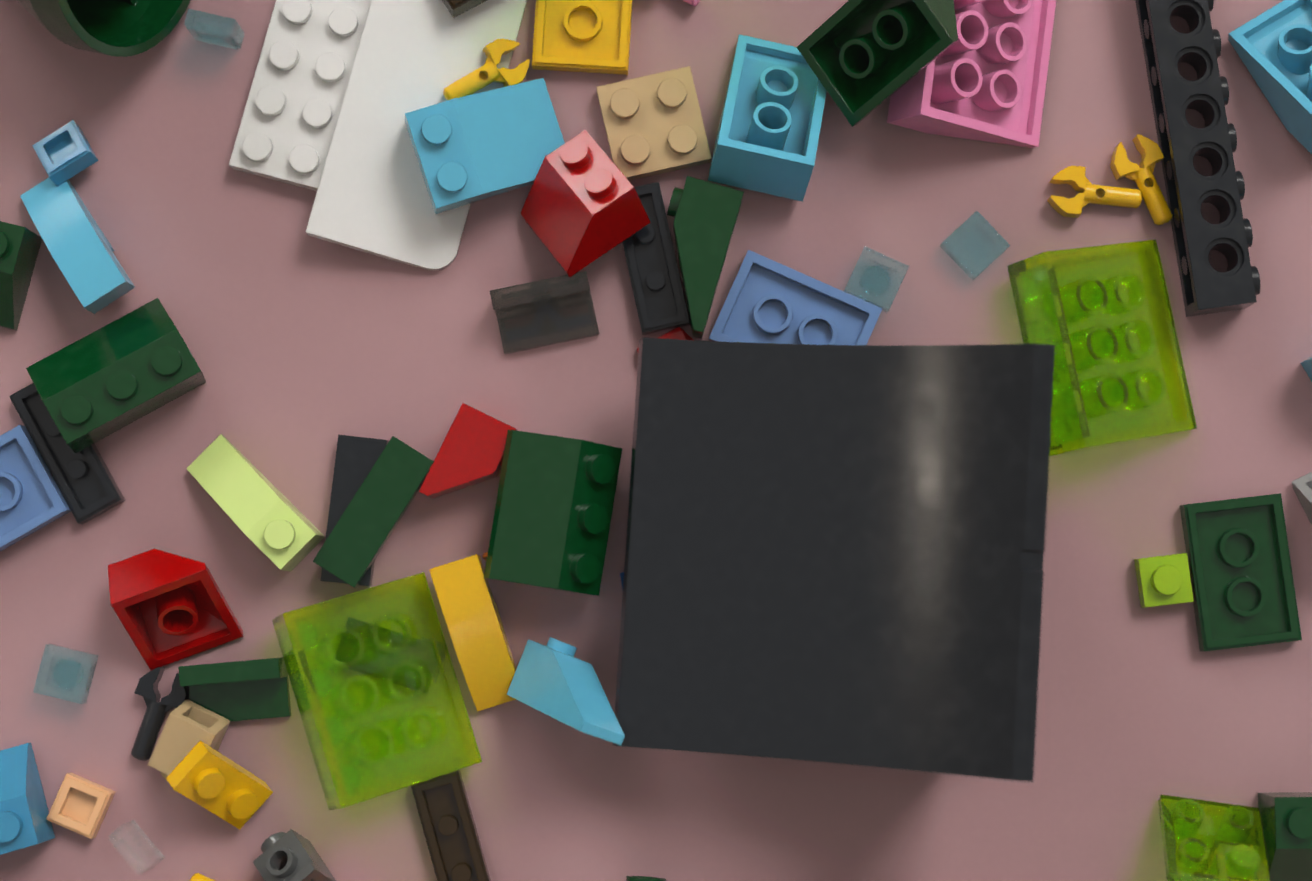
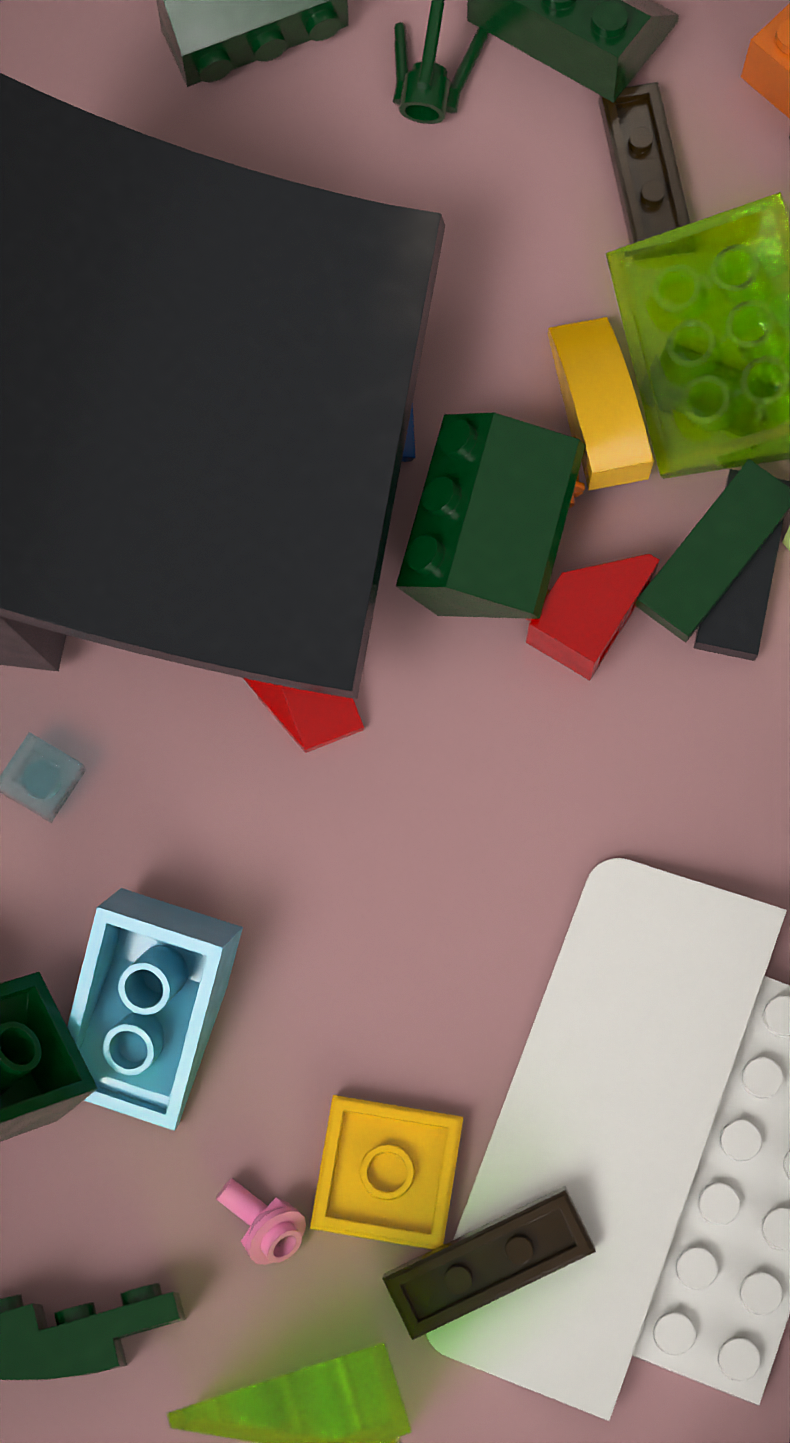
camera: 175 degrees left, 10 degrees down
(483, 142) = (533, 1004): medium azure slope -> none
(489, 72) = (522, 1111): yellow bar -> none
(544, 312) = (477, 783): clear smoke panel -> none
(564, 689) = (495, 297): medium azure slope -> none
(582, 204) = (415, 902): red slope -> none
(654, 123) = (306, 1019): tan plate -> none
(654, 268) = (331, 842): black tile -> none
(702, 235) = (257, 859): dark green slope -> none
(790, 308) = (155, 733): medium blue plate -> none

